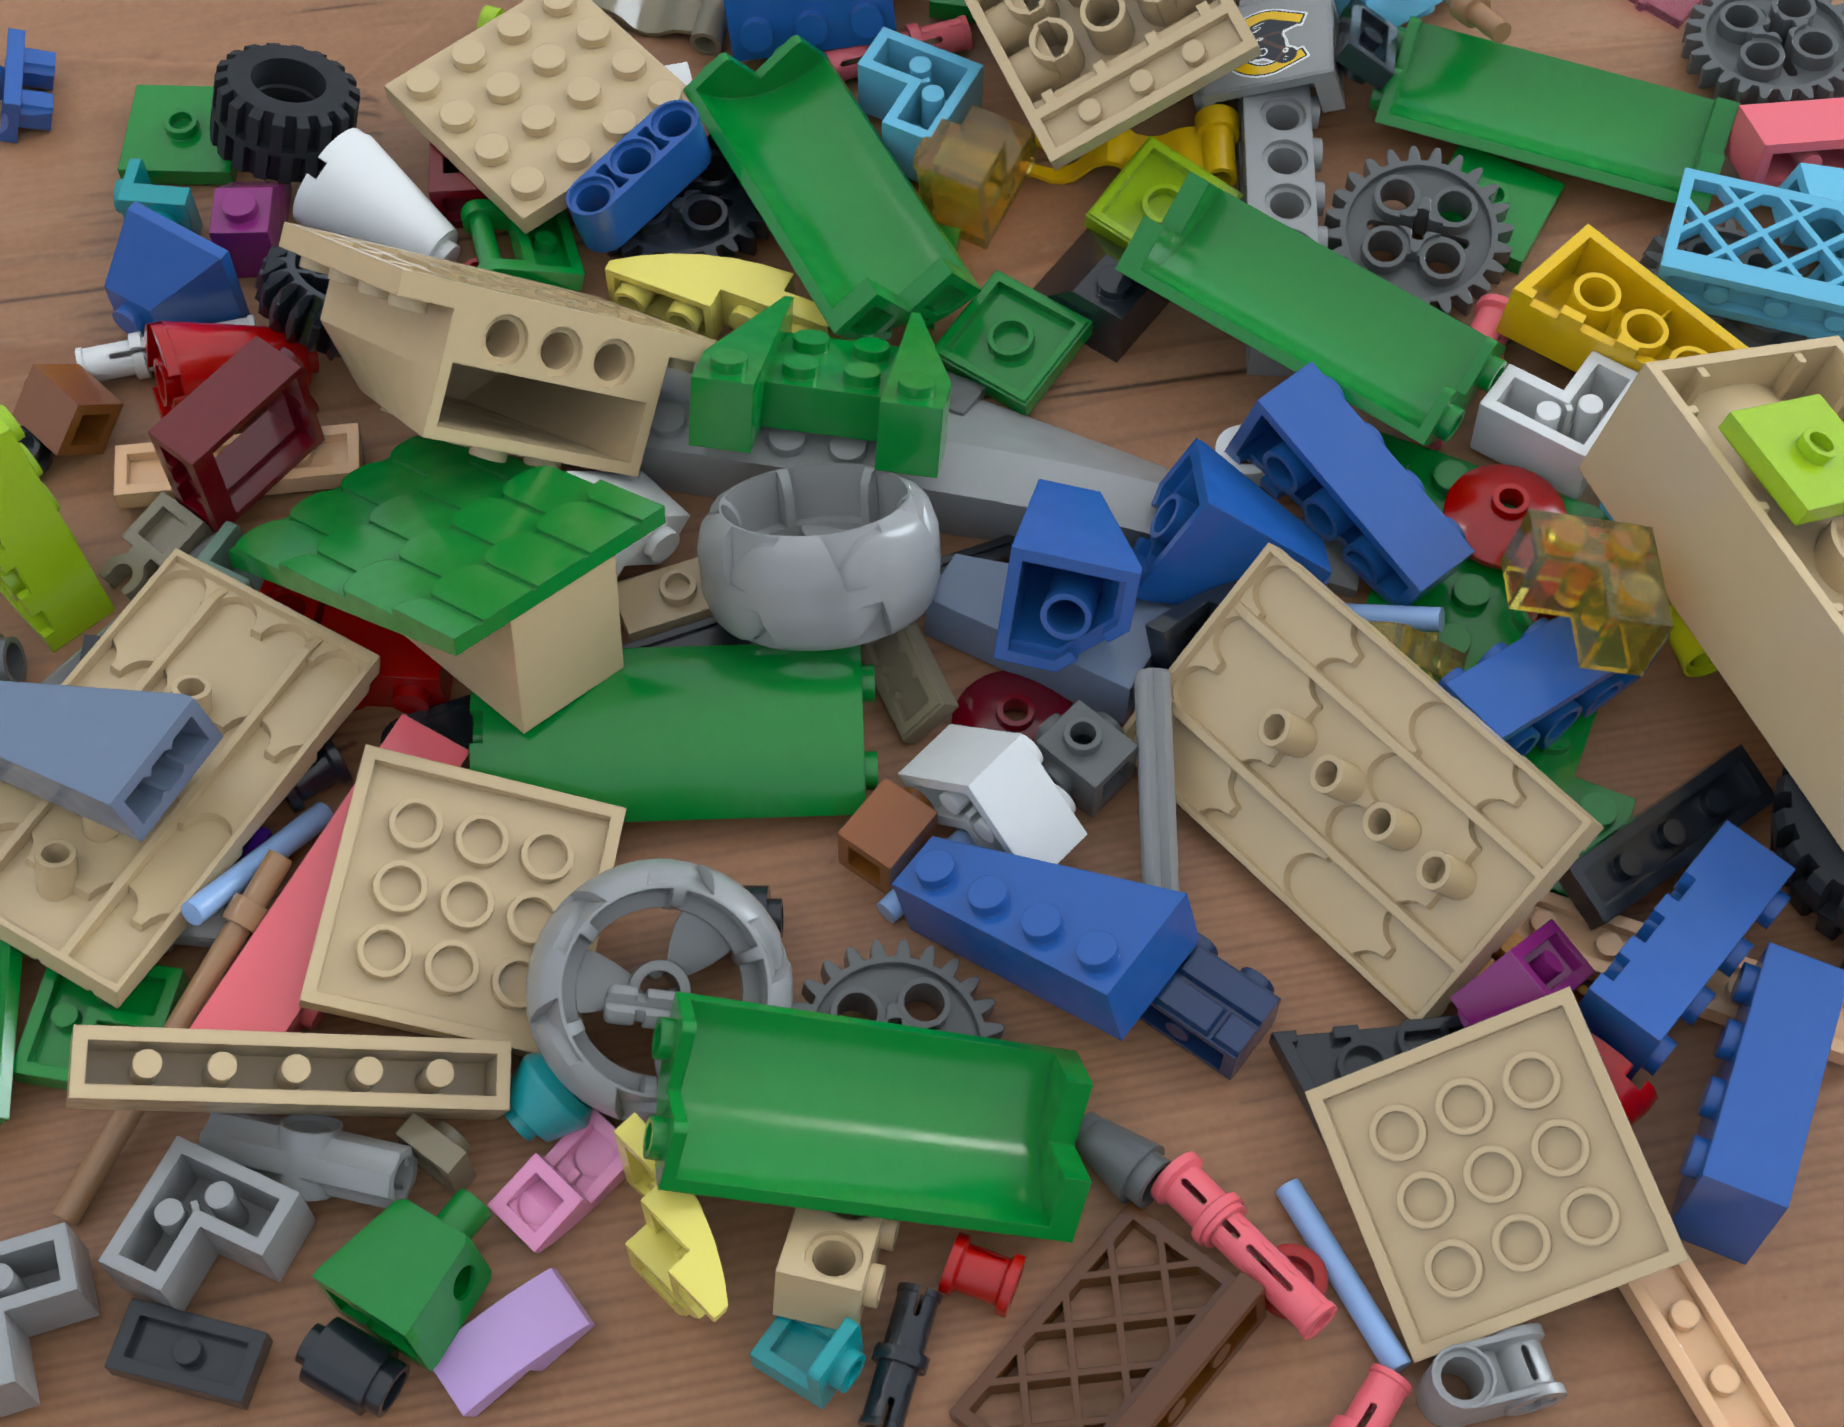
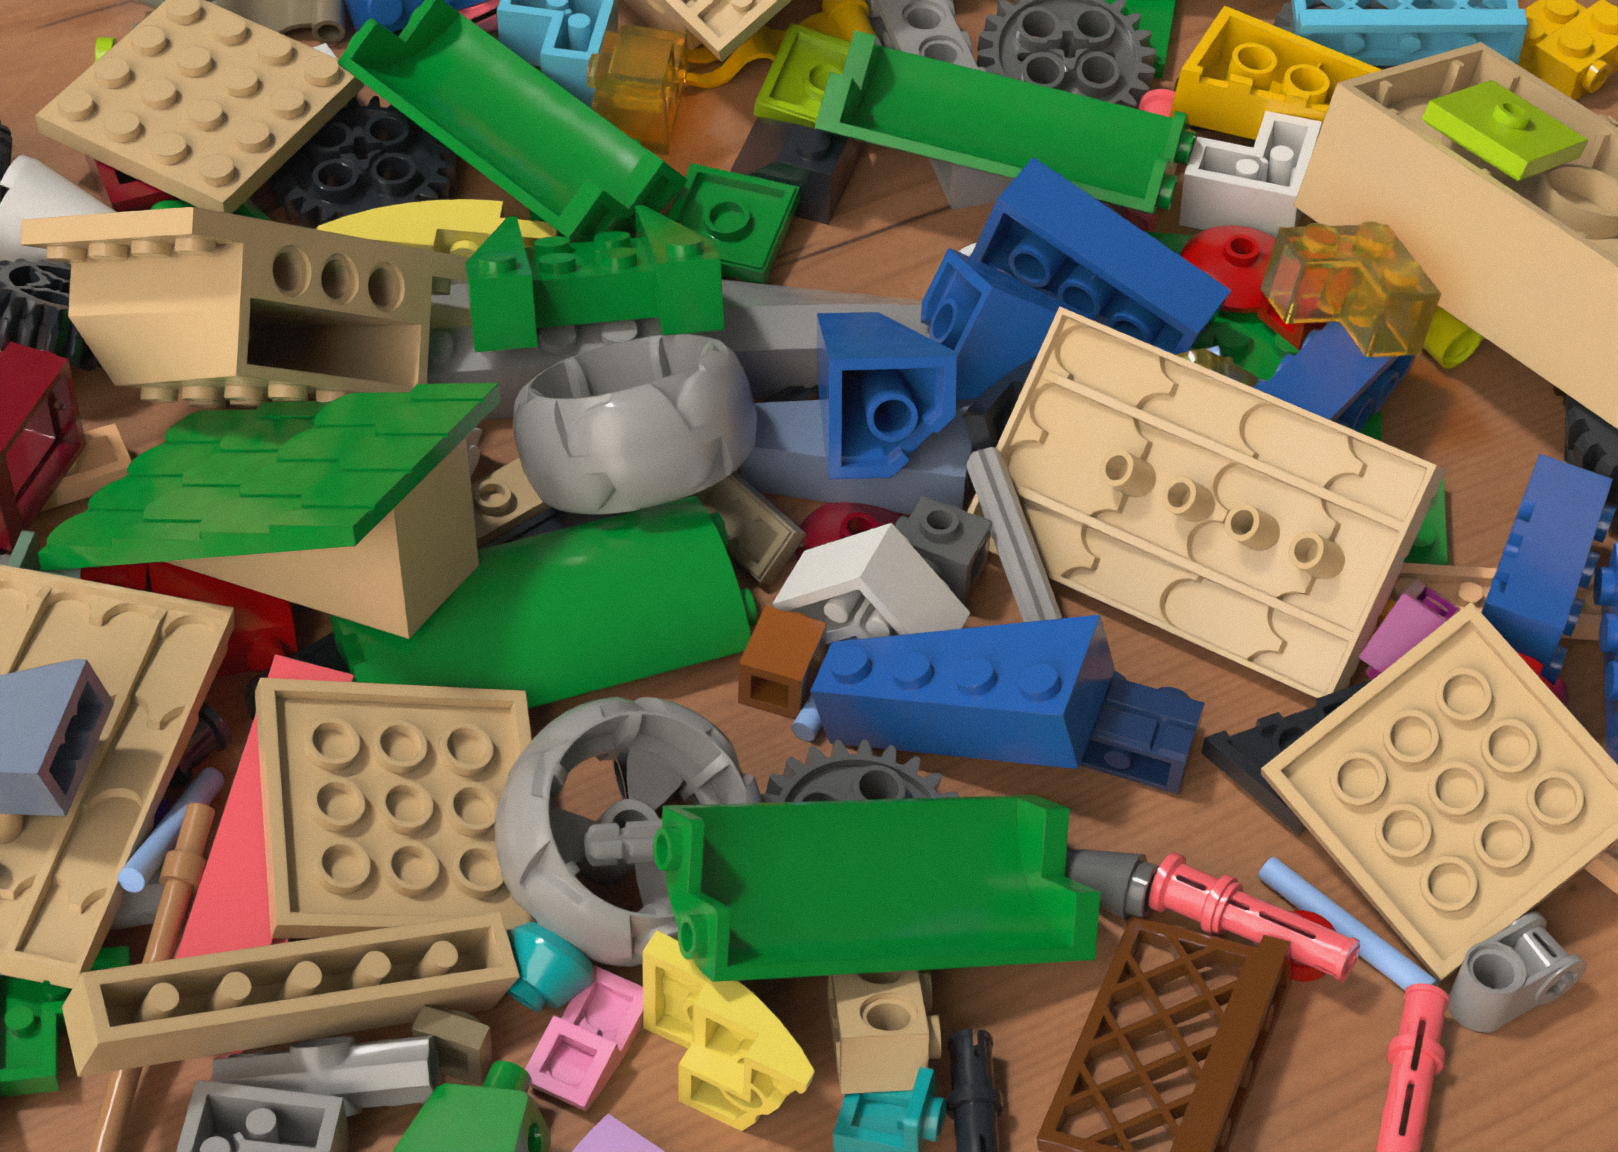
camera: 20 degrees left, 10 degrees down
(639, 176) = (323, 144): blue beam -> none
(982, 1274) = (1023, 1010): red bush -> none
(1665, 836) = (1483, 493): black plate -> none

